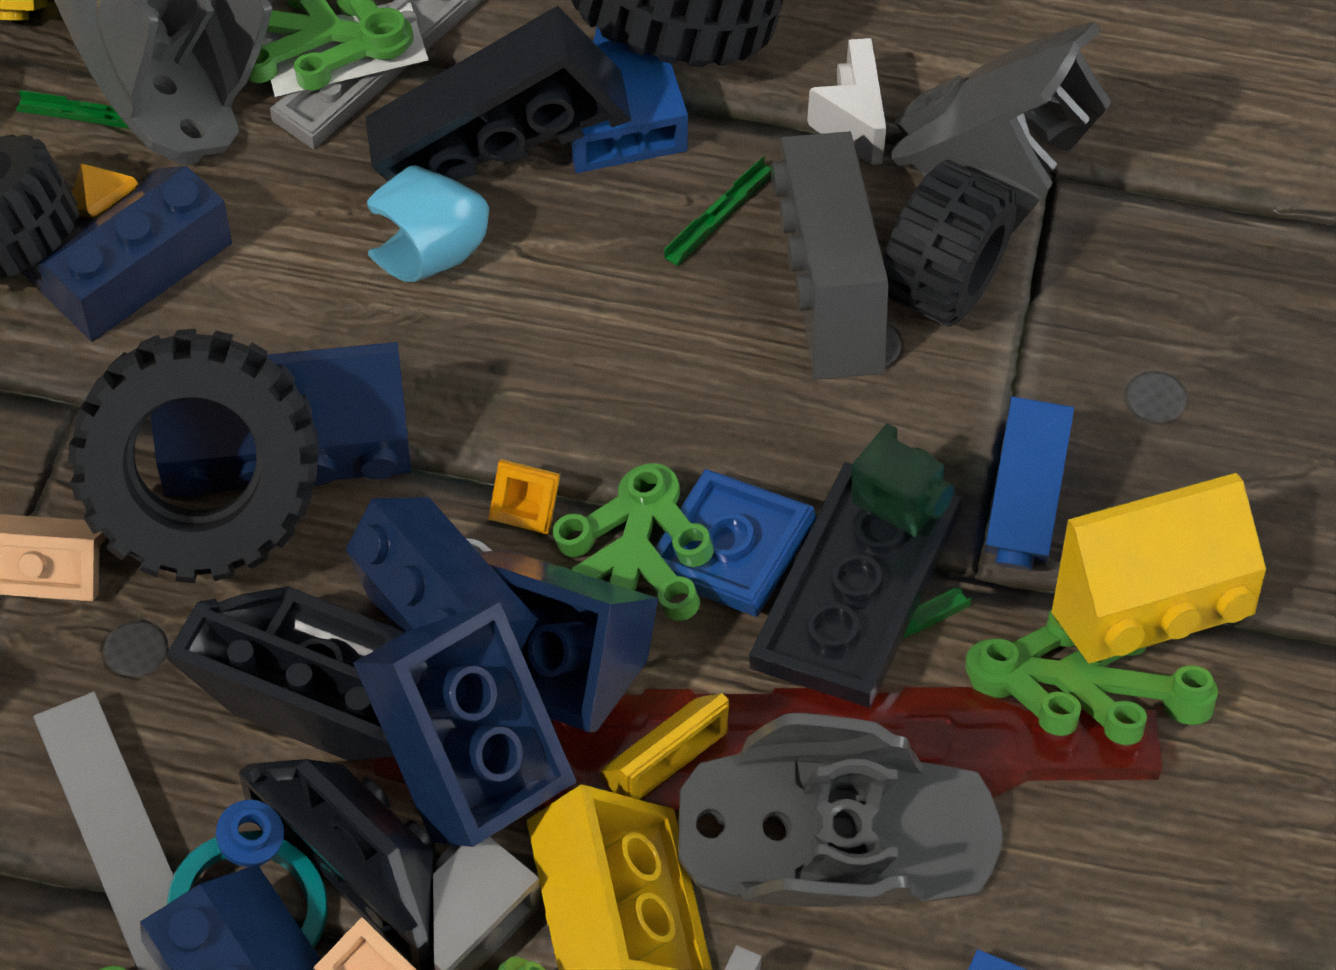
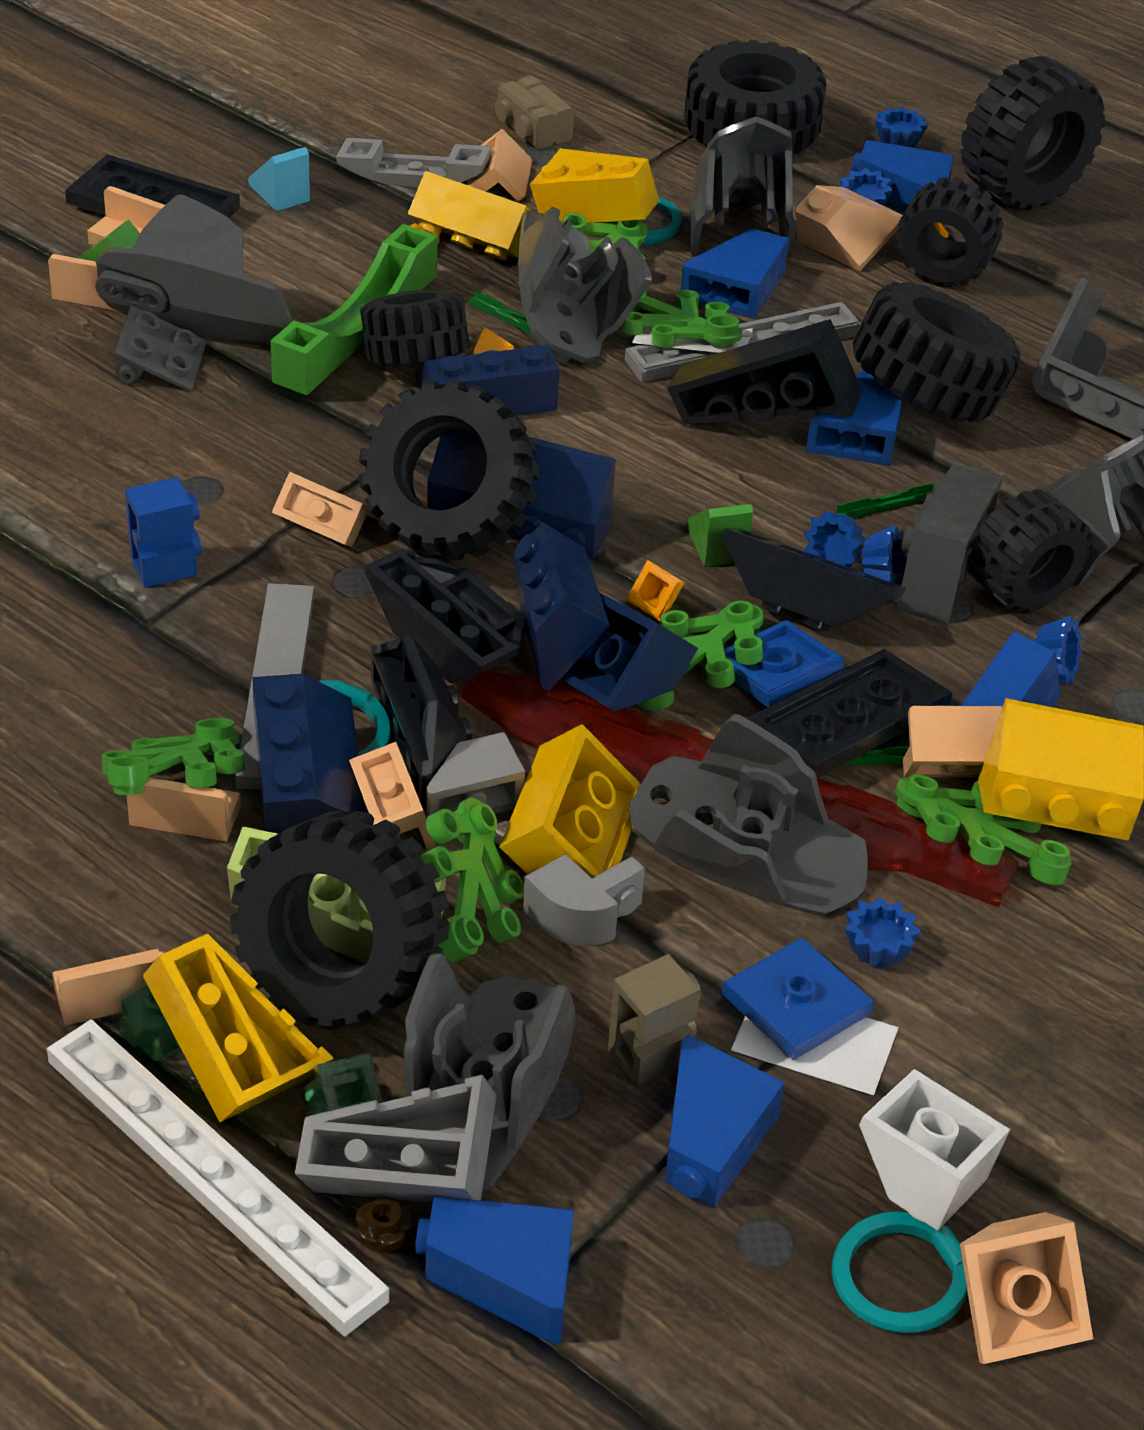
camera: 25 degrees right, 15 degrees down
(244, 851) = (359, 691): blue plate -> none
(437, 223) = (692, 431): medium azure piece -> none
(465, 724) = (526, 657): dark blue slope -> none
(553, 364) = (708, 528): none -> bright green slope
(668, 747) = (658, 742): yellow slope -> none
(701, 320) = (835, 538): none -> blue piece
(708, 405) = (805, 582): none -> black wedge
(772, 318) = (884, 556): none -> blue piece
(853, 103) = (1018, 469): white slope -> none
(899, 482) = (909, 660): clear green brick -> none
(1004, 571) = (949, 740): none -> light nougat panel
(1041, 366) = (1064, 640): none -> blue piece
(1063, 895) = (881, 932): none -> blue piece

